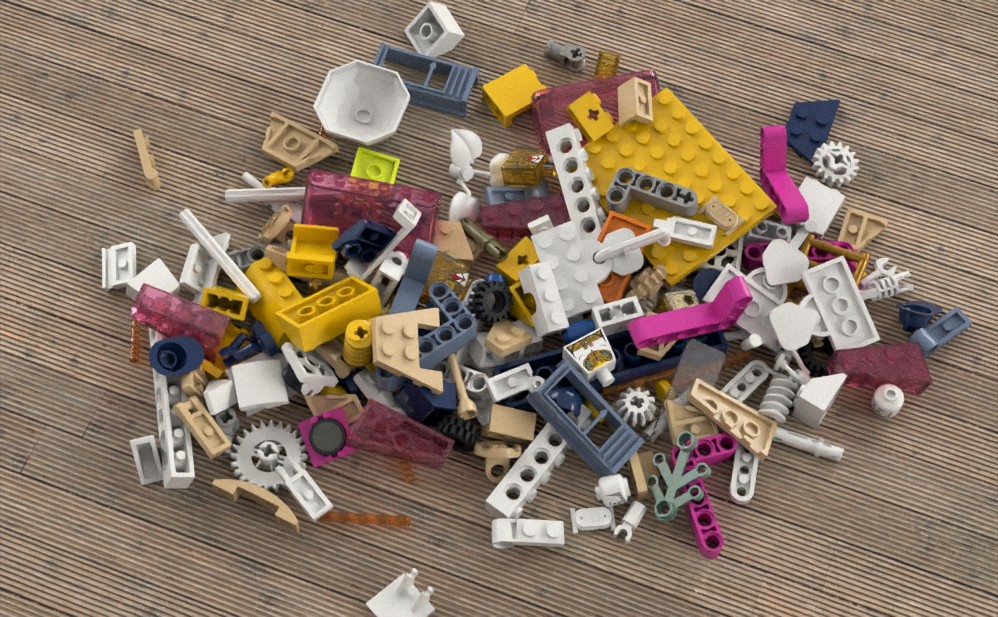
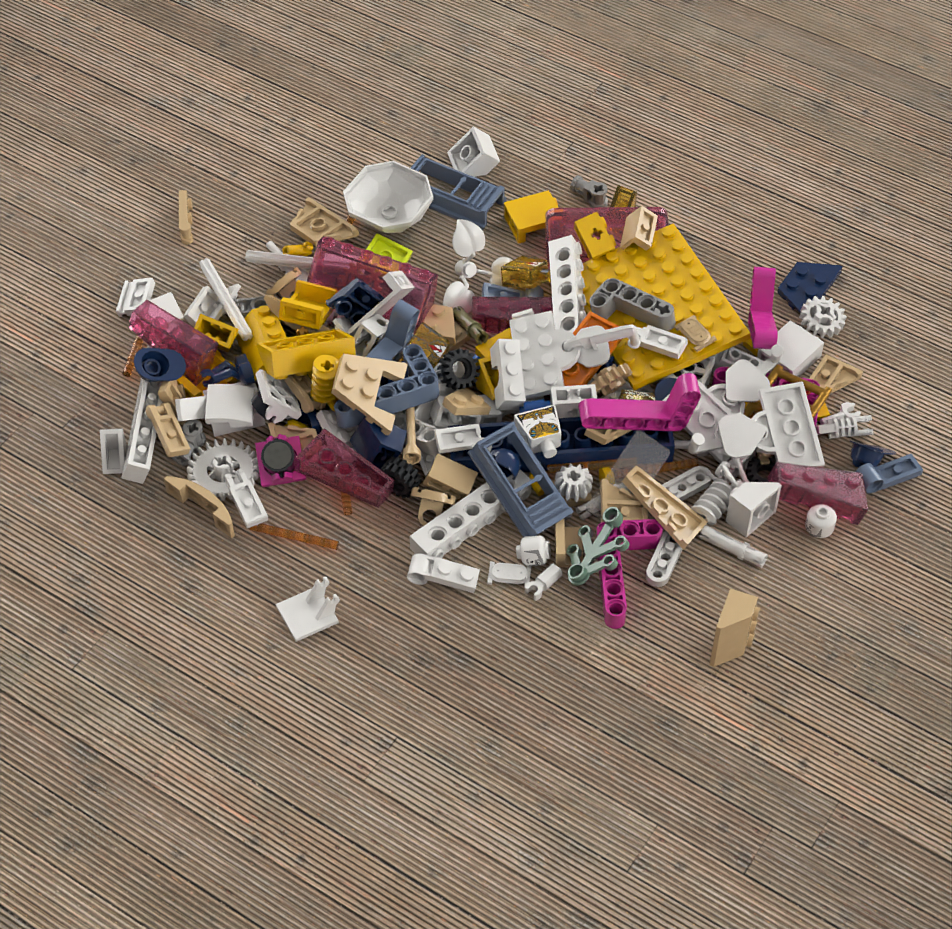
camera: 15 degrees right, 10 degrees down
(836, 542) = (735, 627): none -> tan slope

